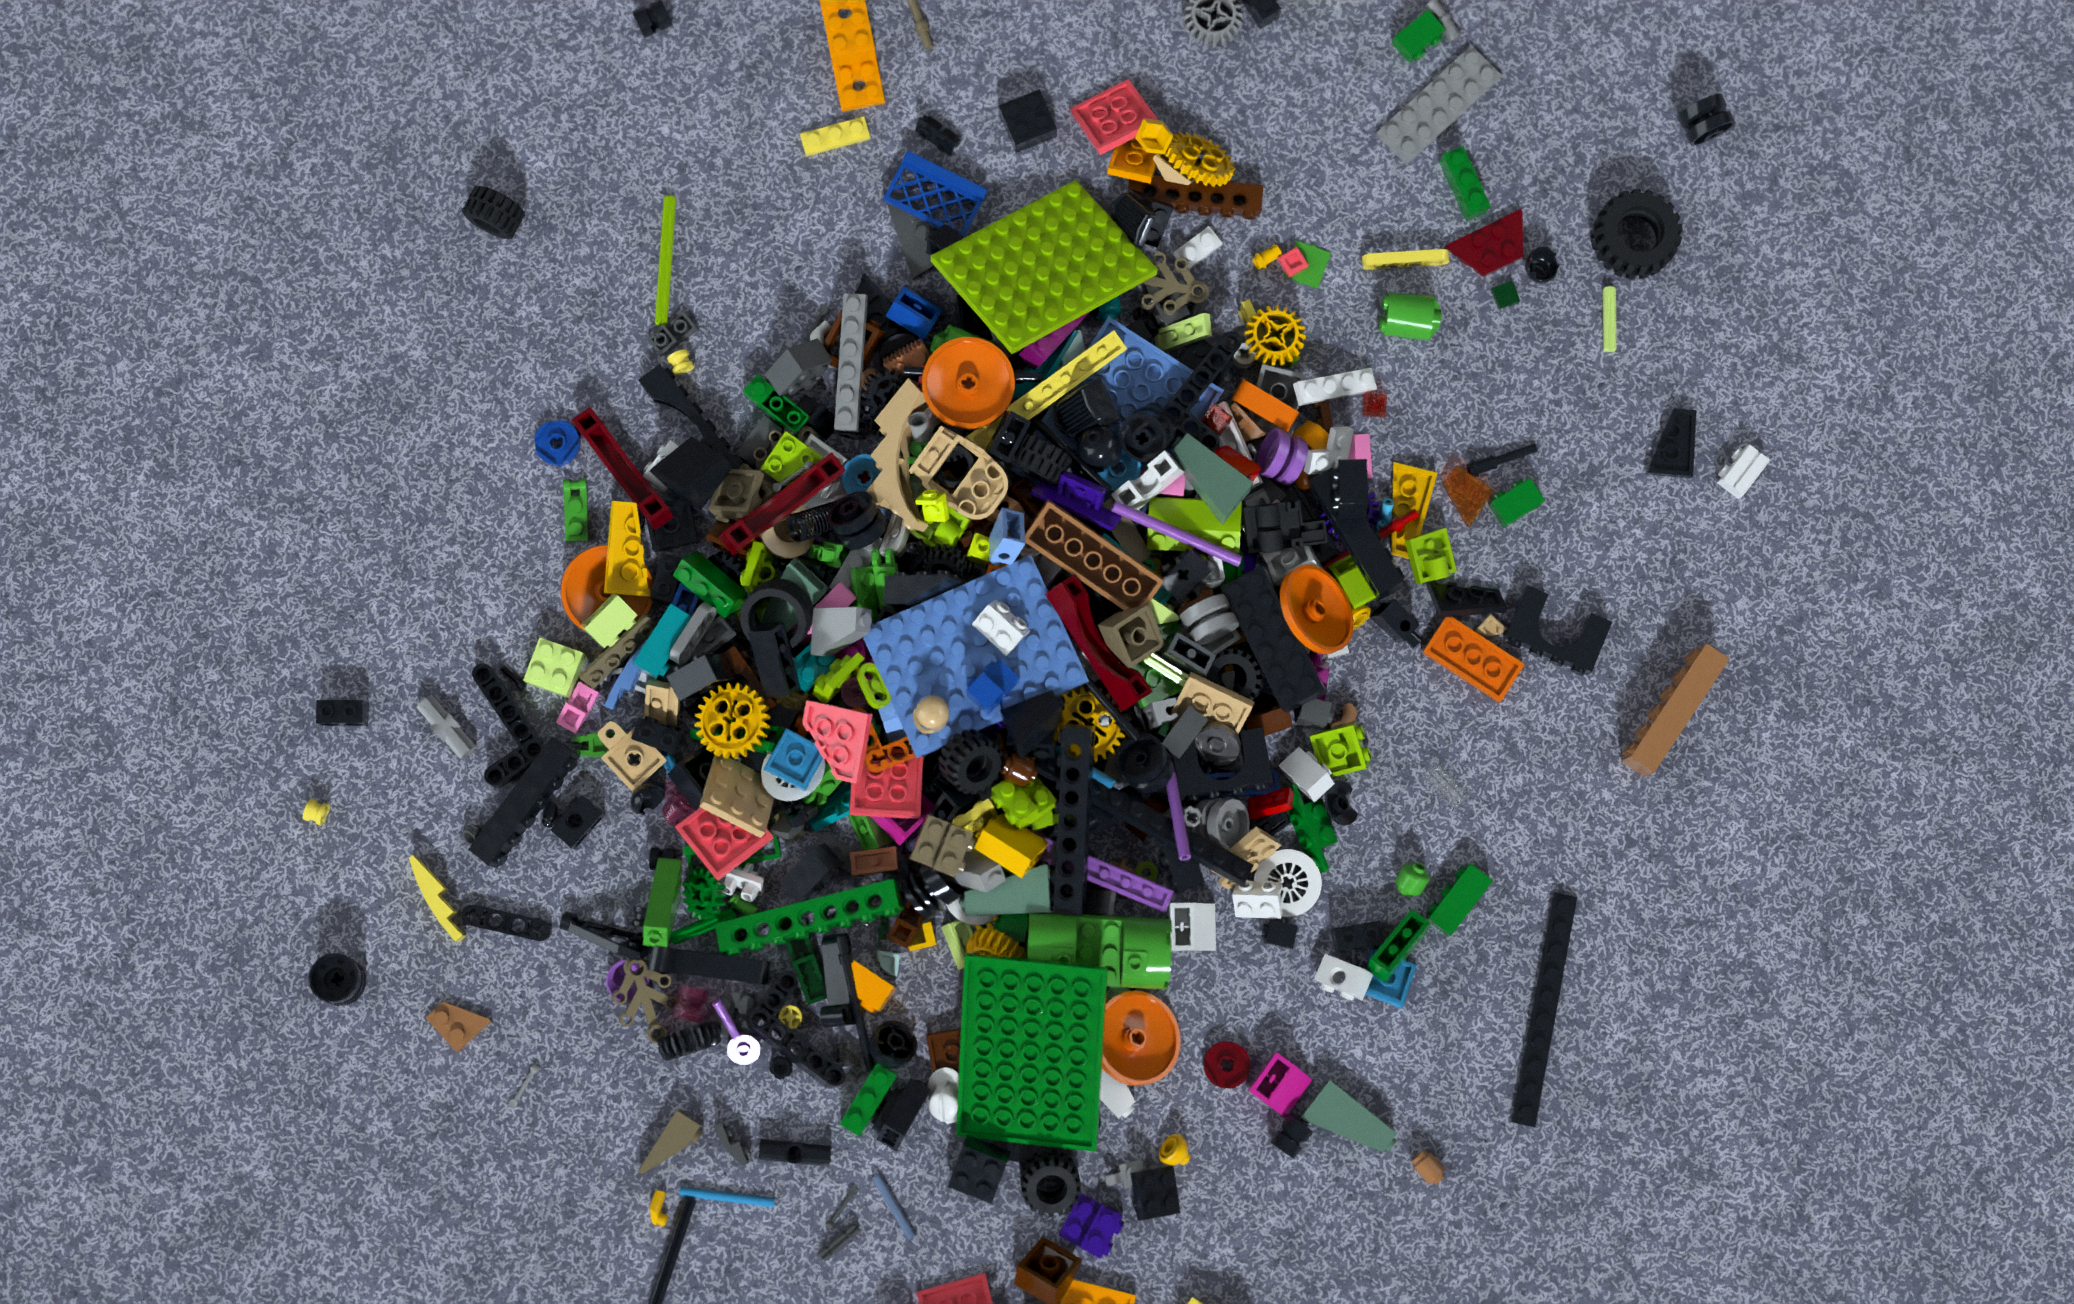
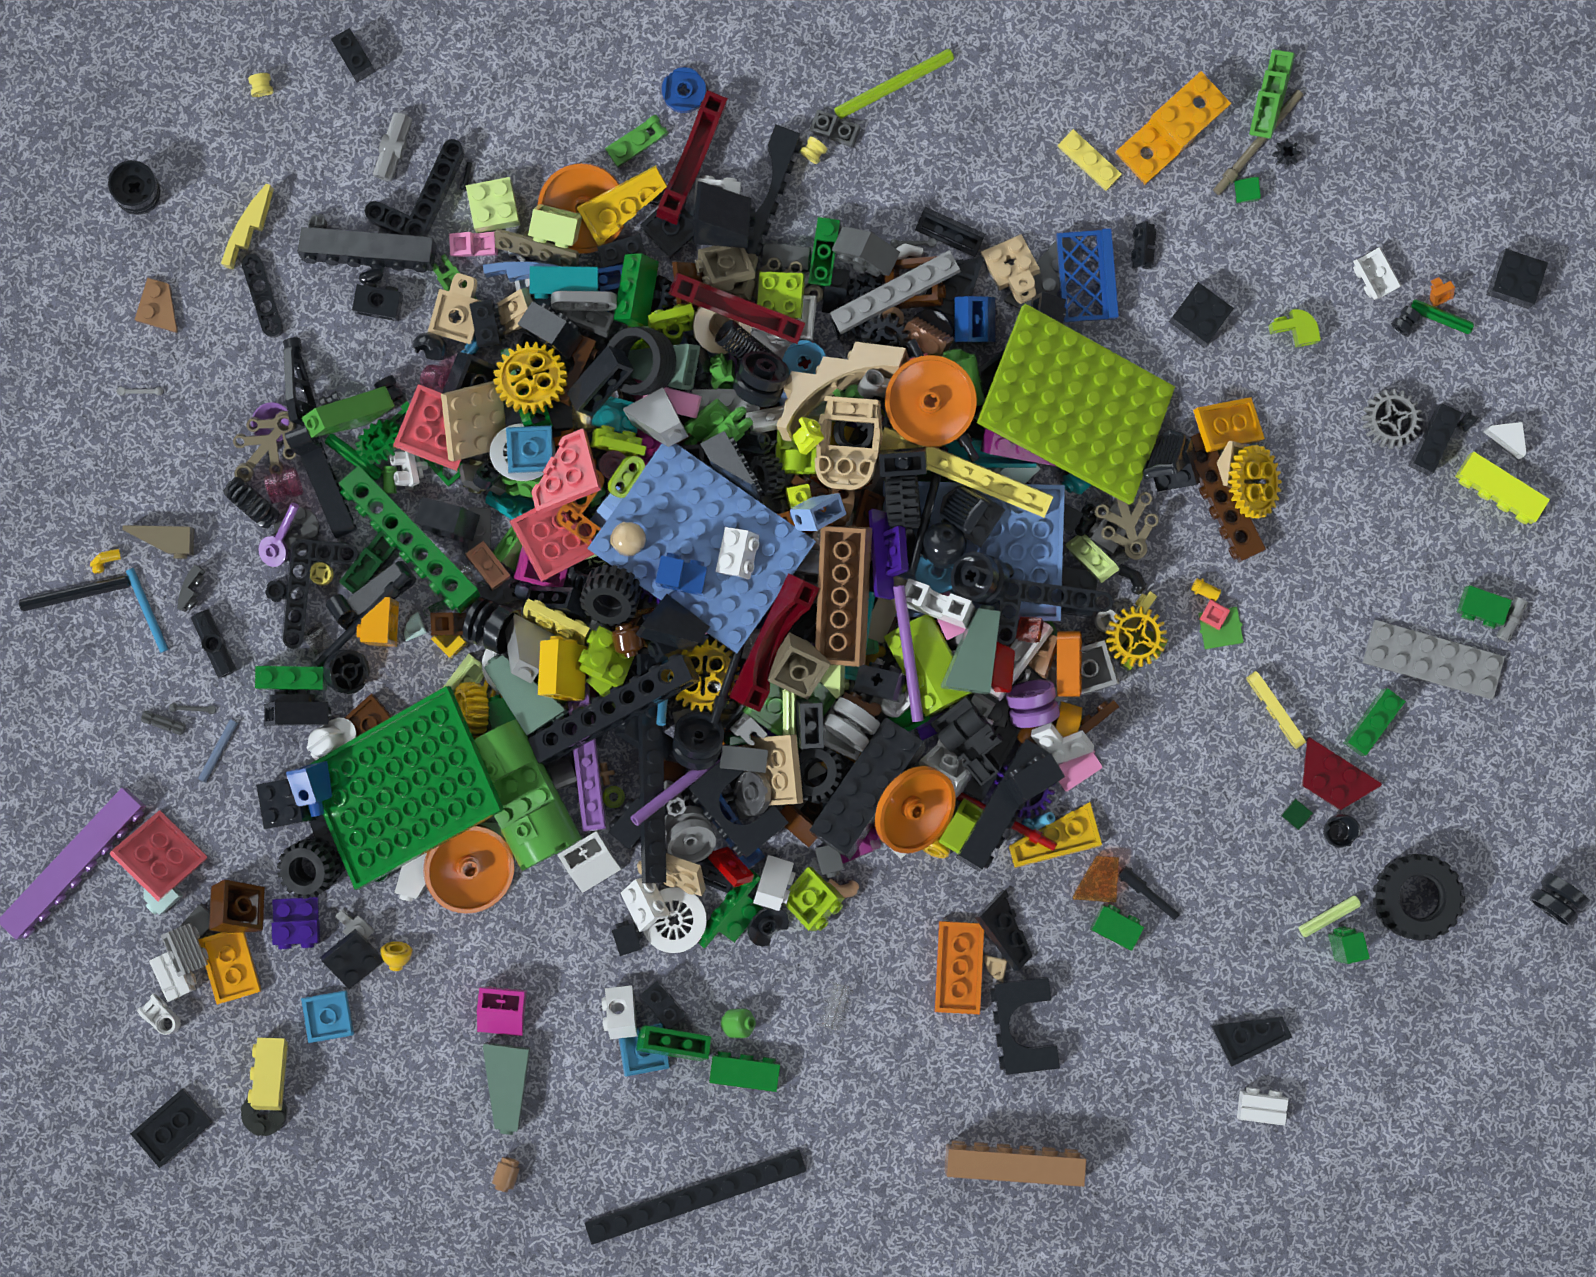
camera: 60 degrees right, 5 degrees up
(778, 486) = (753, 296): light grey hinge -> none
(821, 396) = (855, 290): none -> black gear
(823, 287) = (950, 229): none -> black slope
(899, 250) = (1017, 276): none -> tan plate
(942, 845) = (526, 613): dark tan plate -> none
(943, 20) = (1247, 190): none -> green slope
(979, 1136) = (311, 786): none -> blue torso
(1090, 44) = (1302, 325): none -> lime brick
(1112, 116) = (1249, 386): coral plate -> none
(1154, 136) = (1249, 430): yellow panel -> none
(1193, 1247) = (327, 1016): none -> dark azure plate
(1198, 247) = (1178, 526): white plate -> none
(1227, 310) = (1135, 577): none -> black arm
(1229, 1051) = (480, 960): dark red plate -> none
(1291, 1136) = (461, 1044): black wheel -> none
(1334, 386) = (1124, 714): white plate -> none
(1374, 405) = (1130, 757): clear red tile -> none
(1390, 616) = (951, 876): black torso -> none
(1410, 316) = (1225, 742): bright green cylinder -> none
(1431, 556) = (1025, 881): lime plate -> none
(1646, 314) = (1348, 945): none -> green brick

